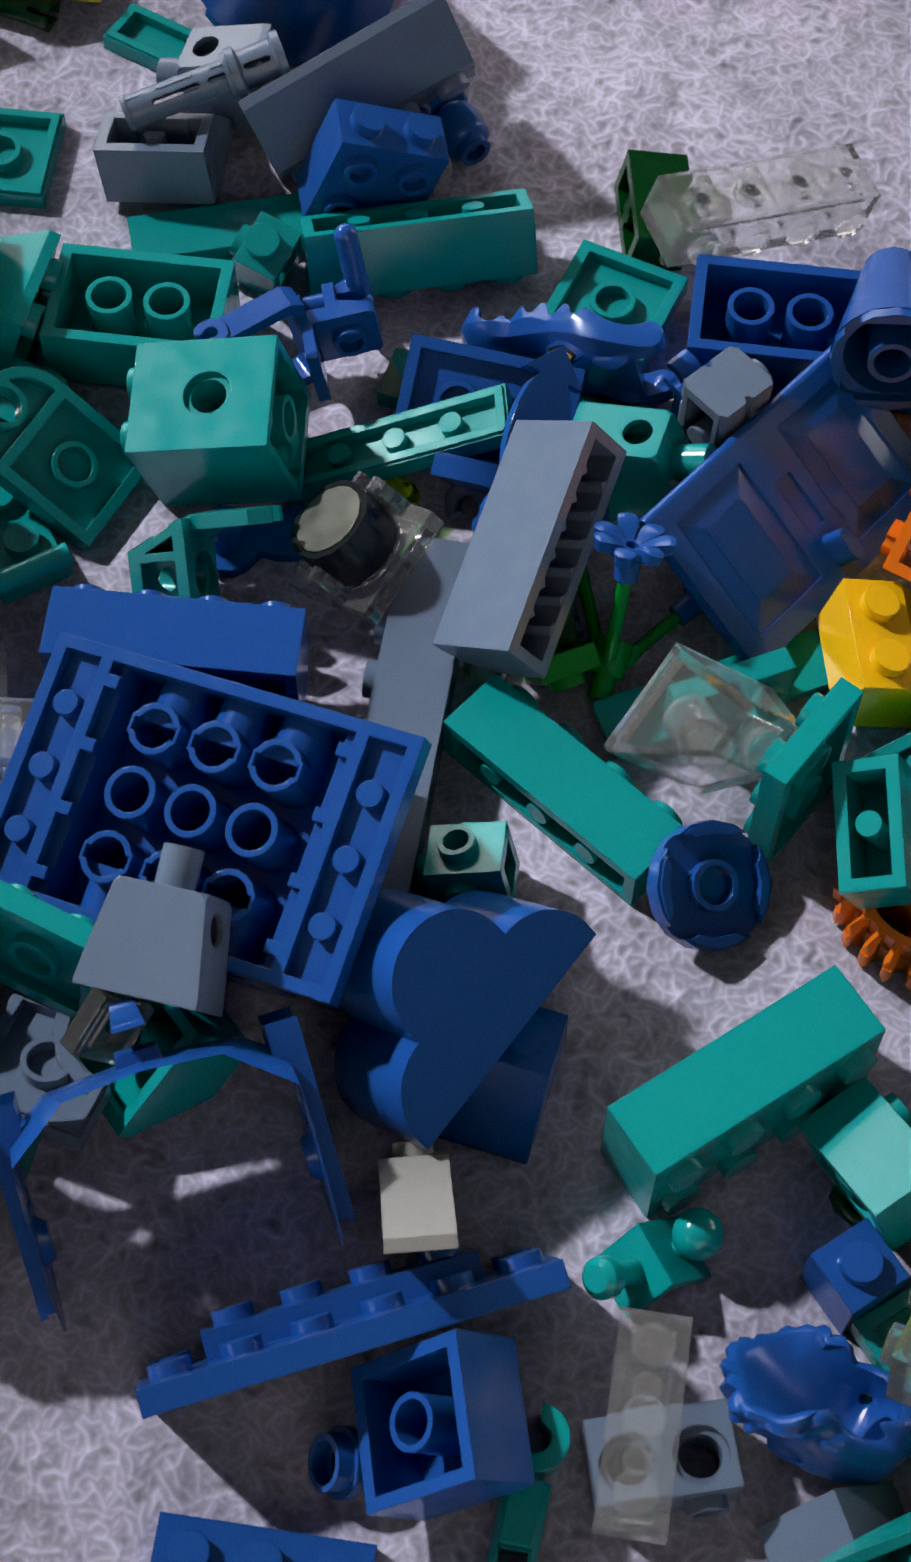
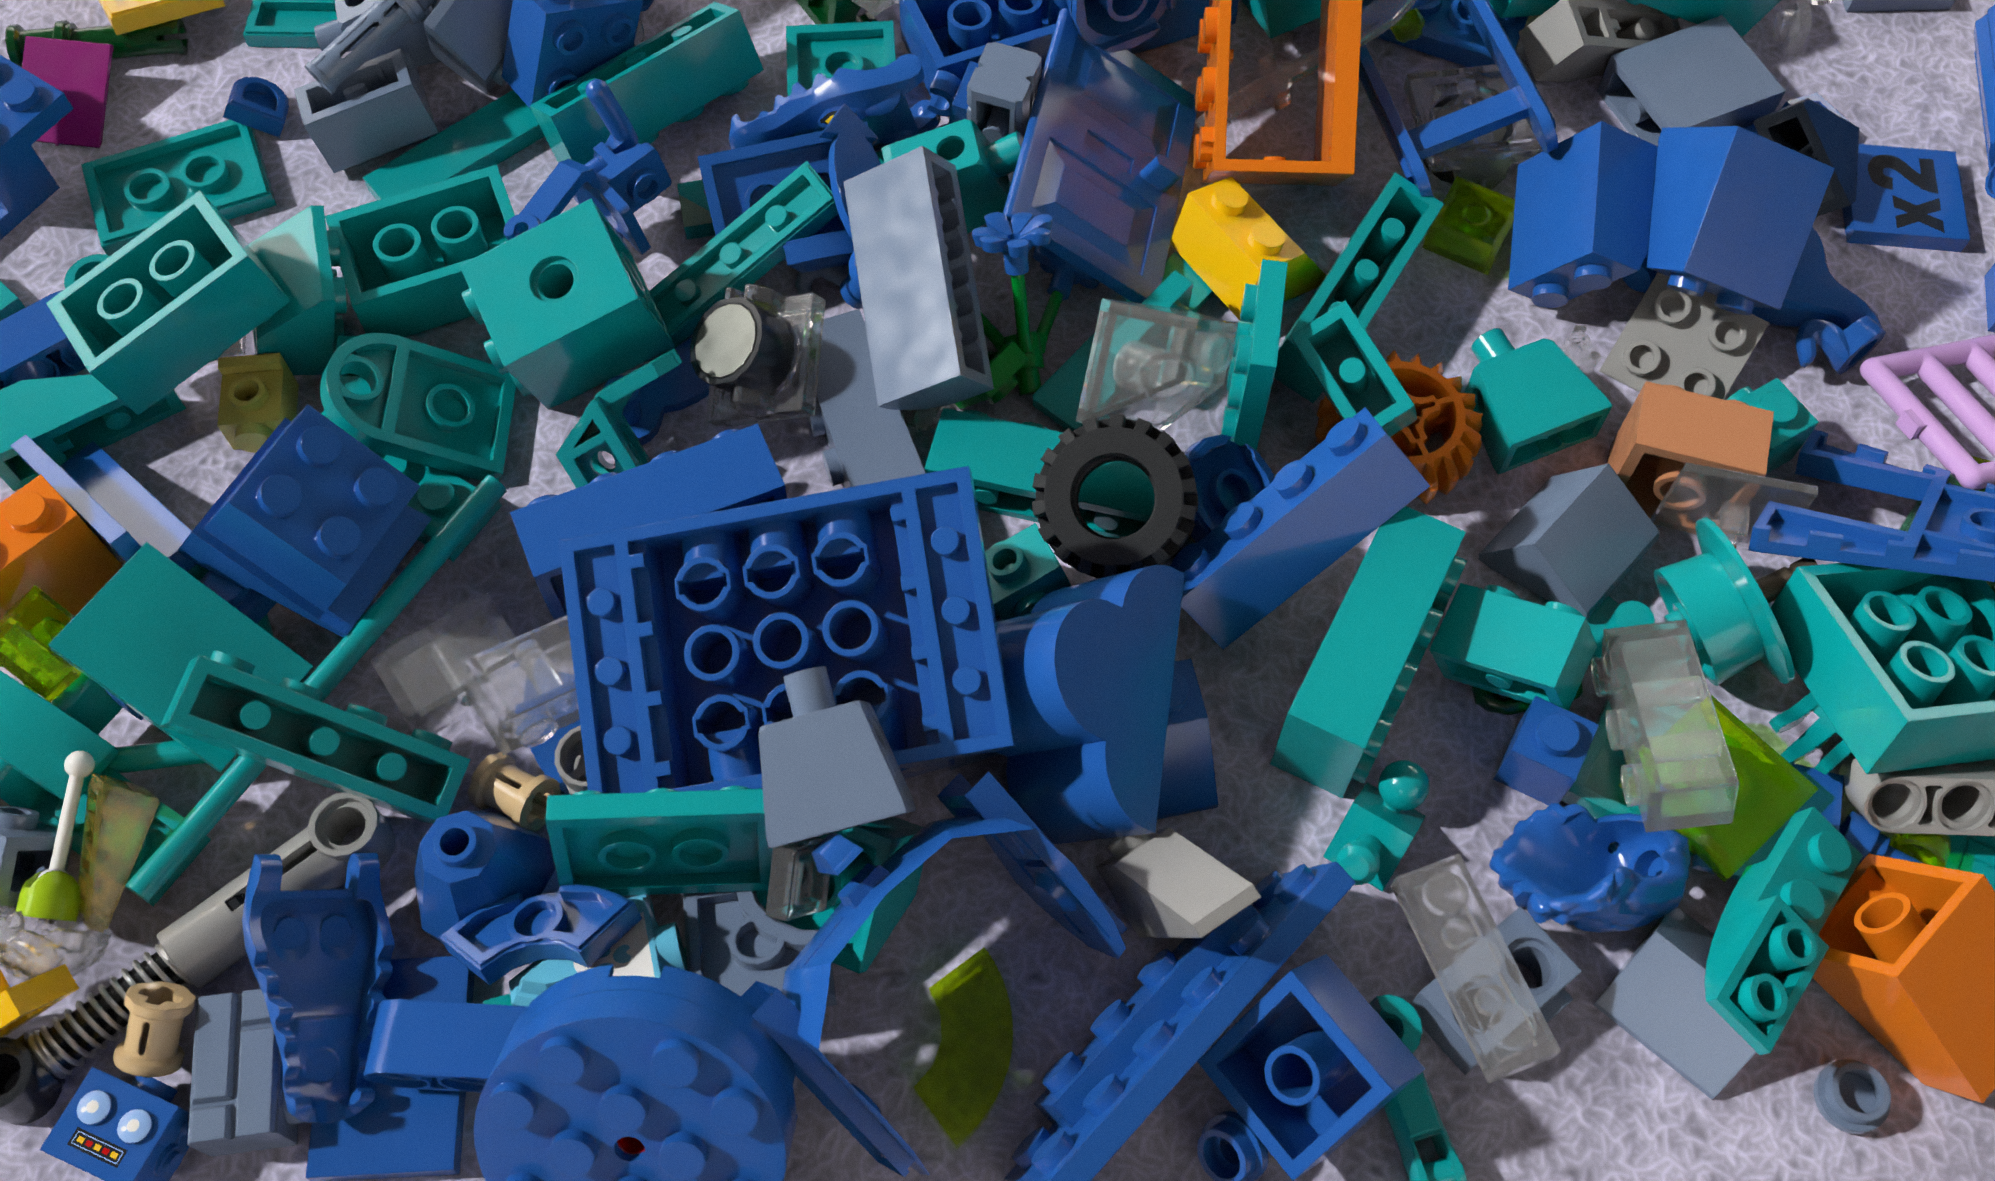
camera: 30 degrees left, 0 degrees up
(76, 109) = (258, 105): none -> blue tile
(180, 1254) = (973, 1047): none -> clear neon green tile
(266, 253) = (516, 150): teal brick -> none
(534, 823) = (1082, 453): none -> black tyre
(733, 943) = (1296, 527): none -> blue brick

